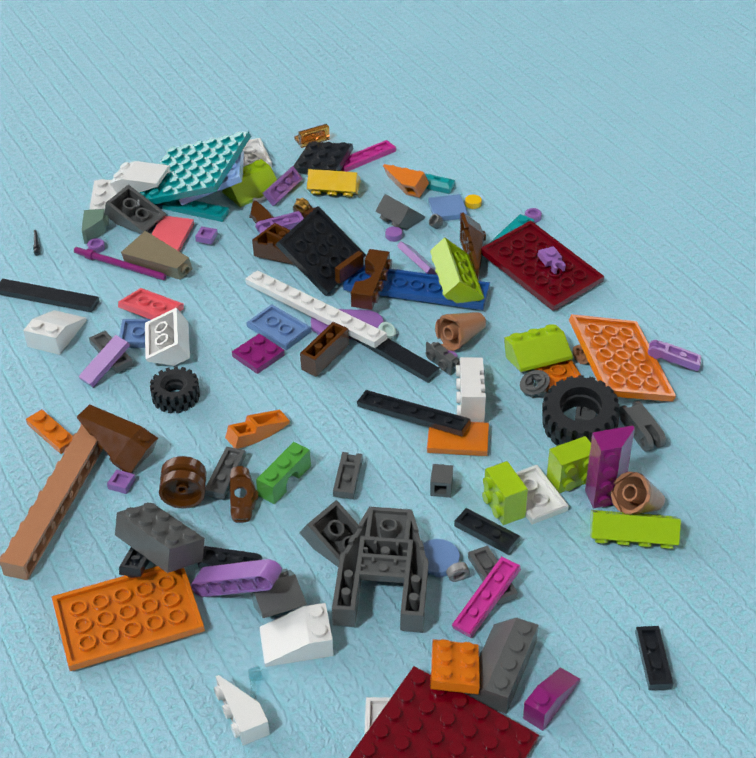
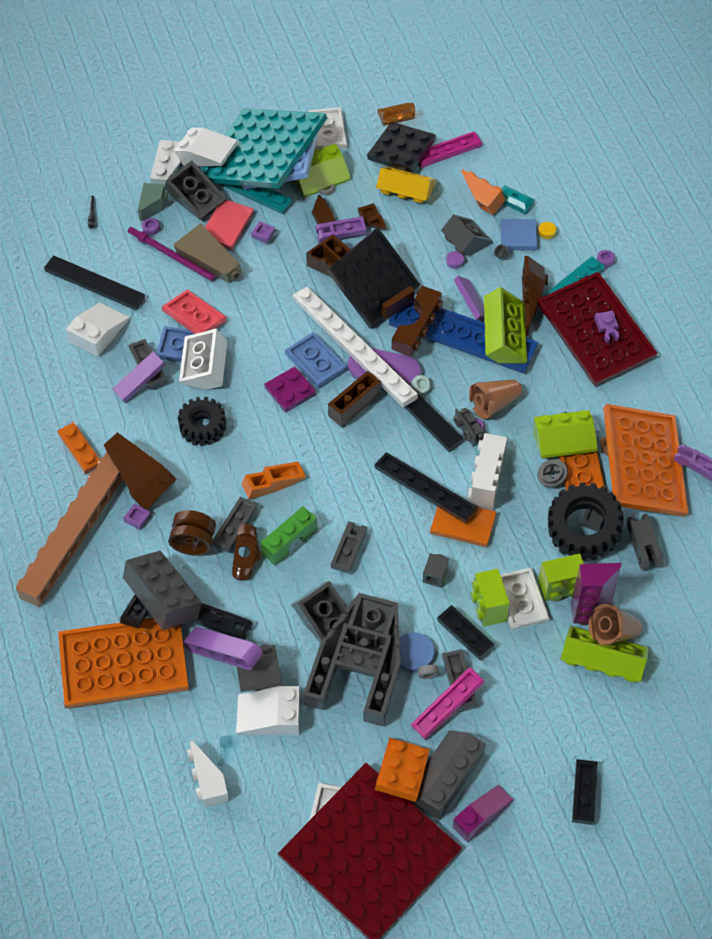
camera: 10 degrees right, 15 degrees up
(282, 186) = (352, 179): medium lavender plate -> none
(301, 205) = (366, 210): pearl gold plate -> none

